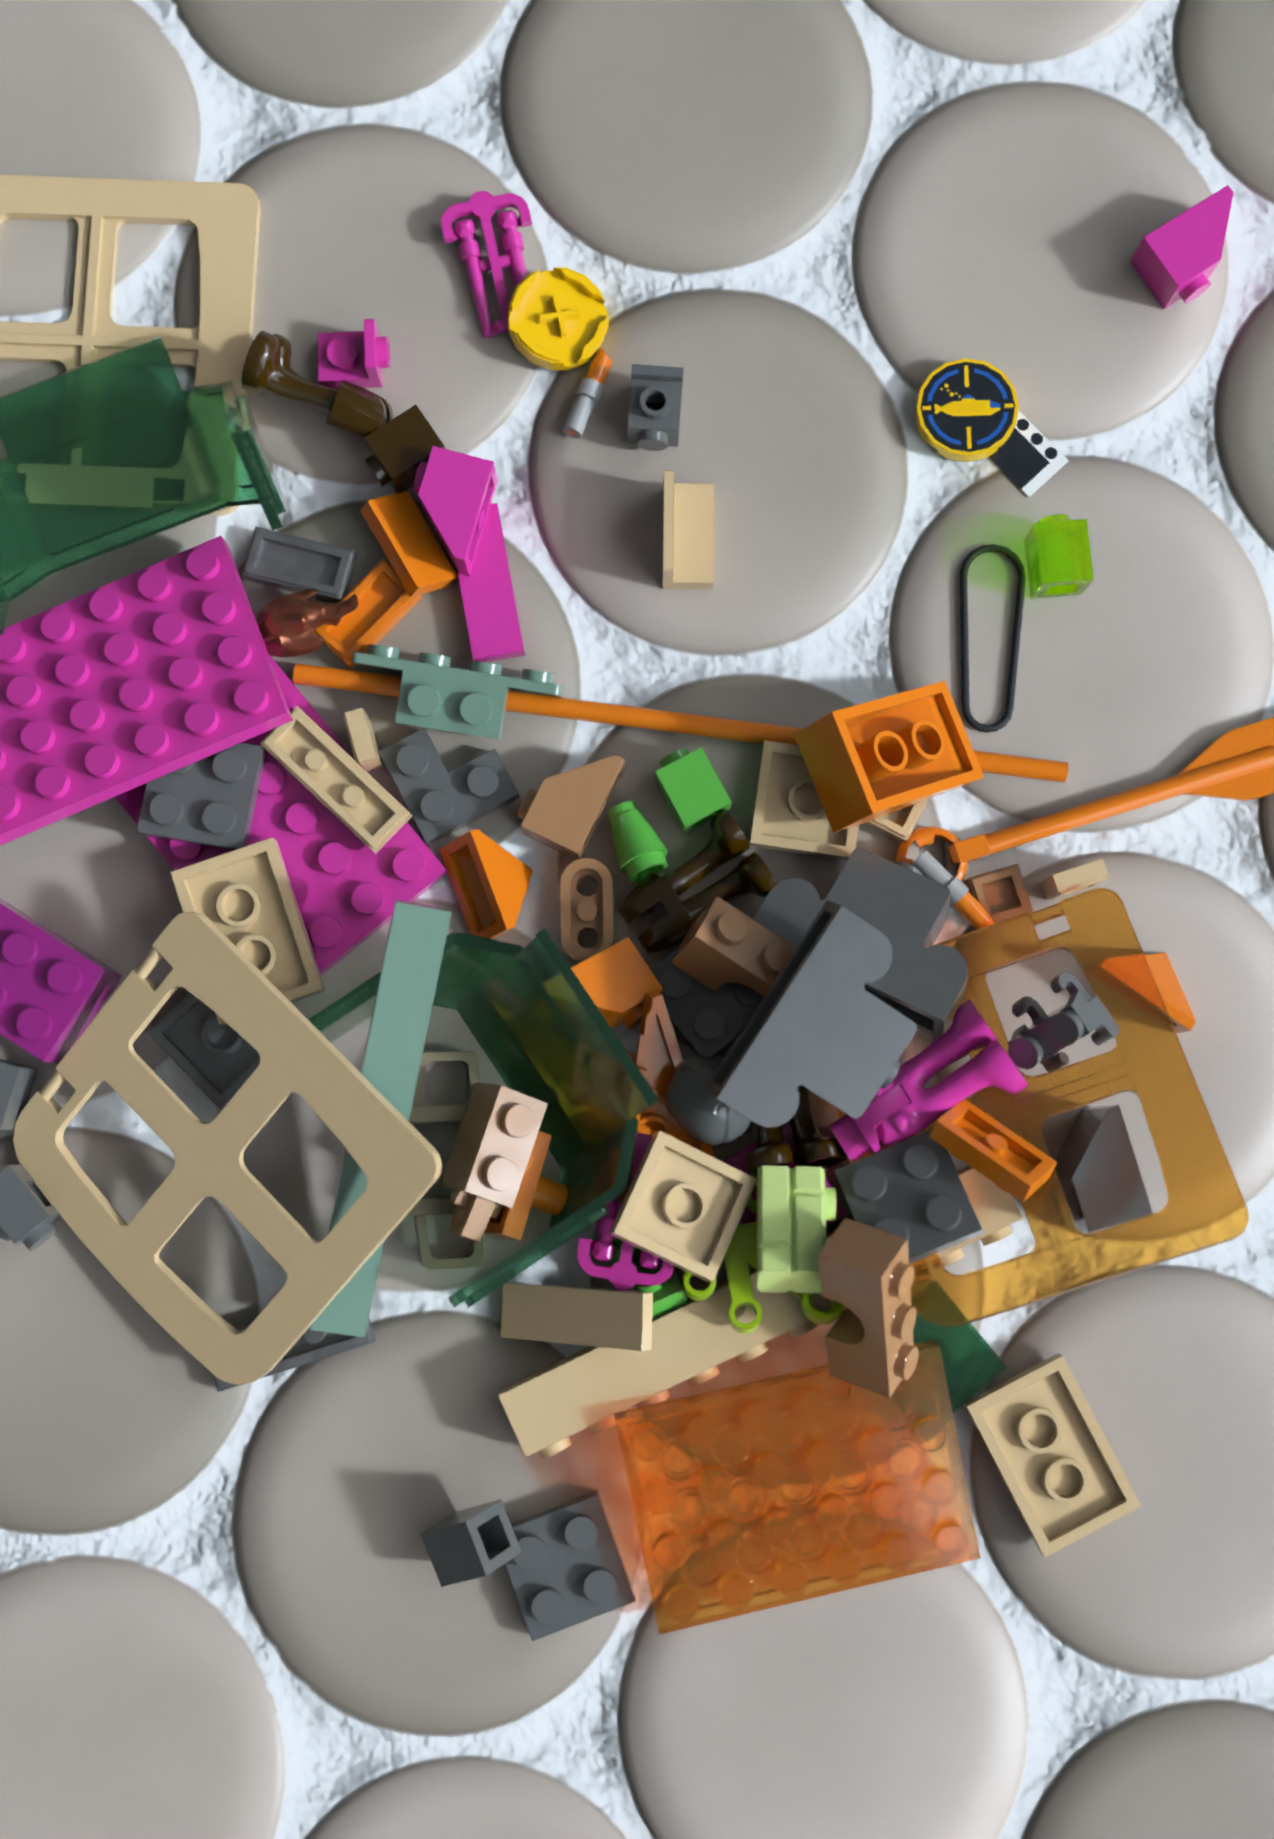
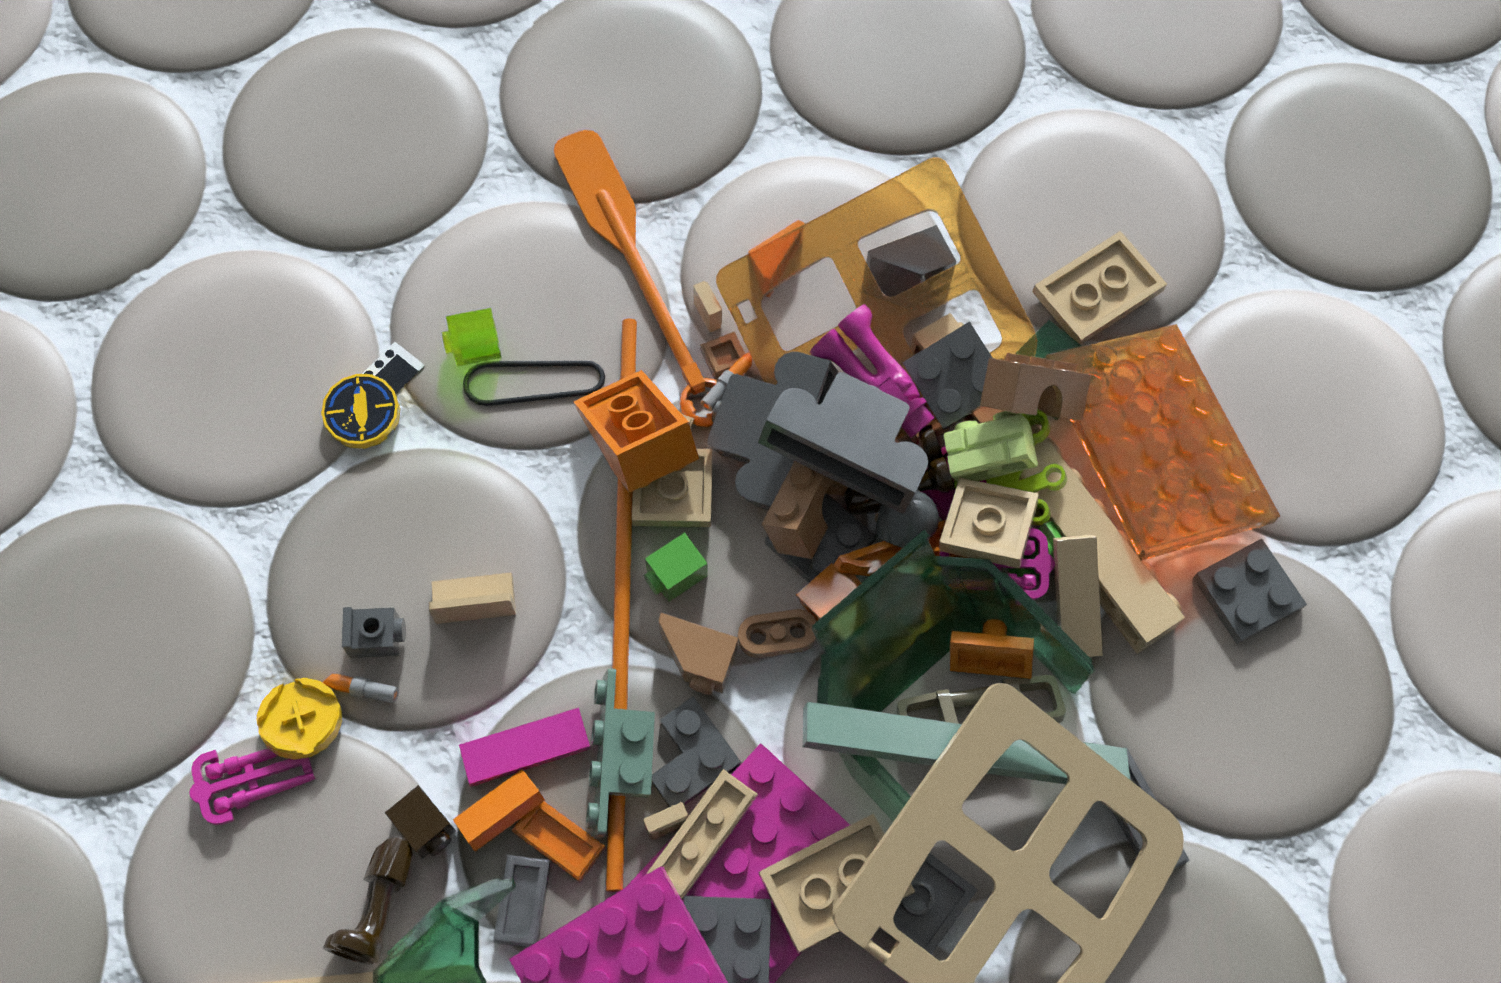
camera: 100 degrees left, 15 degrees down
(291, 620) = (573, 891): copper piece -> none
(353, 356) = (339, 882): dark pink bracket -> none
(457, 500) = (466, 769): dark pink slope -> none
(471, 1543) = (1253, 650): dark grey brick -> none
(486, 883) = (767, 712): orange slope -> none
(490, 1156) = (967, 667): hinge -> none
(636, 843) = (720, 604): bright green cone -> none
(724, 845) = (733, 519): dark brown piece -> none
(993, 1150) = (914, 320): orange plate -> none
(1059, 1028) = (820, 292): dark grey piece -> none
(1185, 251) = (232, 273): dark pink slope -> none

